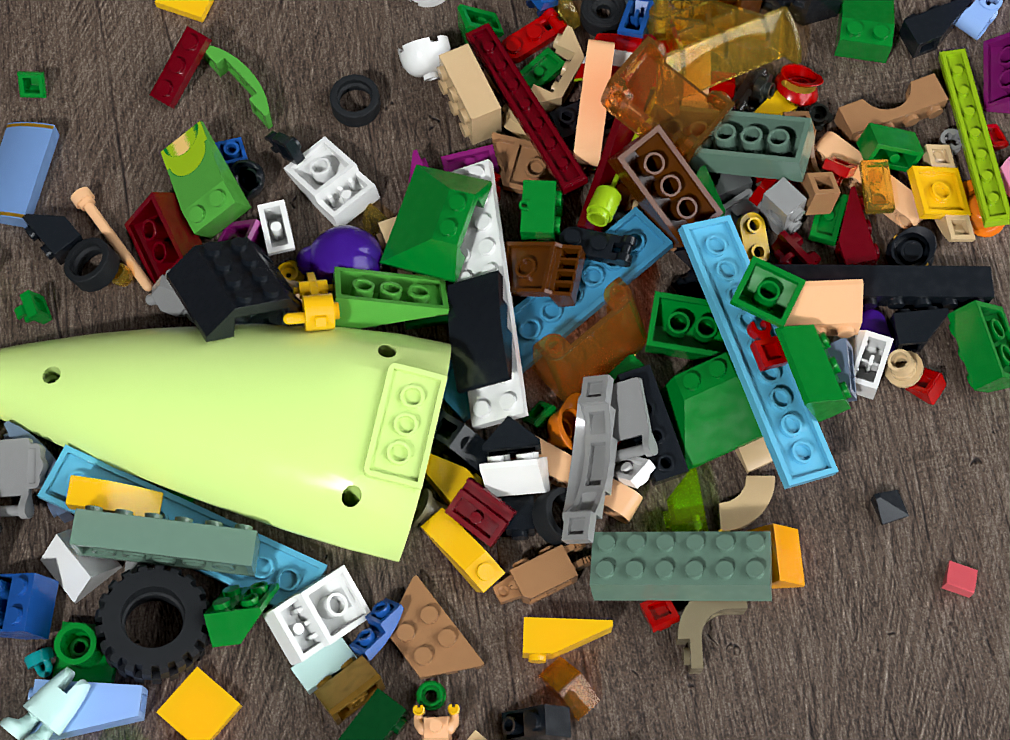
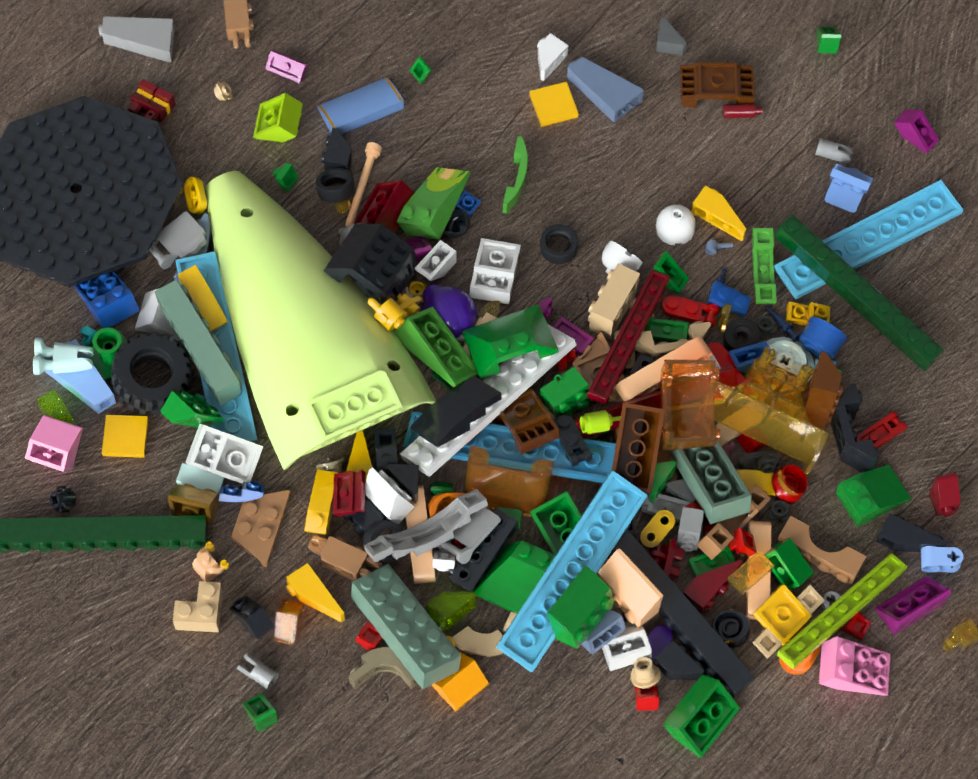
camera: 50 degrees right, 5 degrees down
(180, 67) = (496, 136): dark red plate -> none
(287, 146) = (495, 229): black plate -> none
(427, 687) = (223, 545): green plate -> none
(765, 348) = (571, 570): red plate -> none
(767, 292) = (604, 546): green slope -> none
(889, 506) = (546, 726): black slope -> none

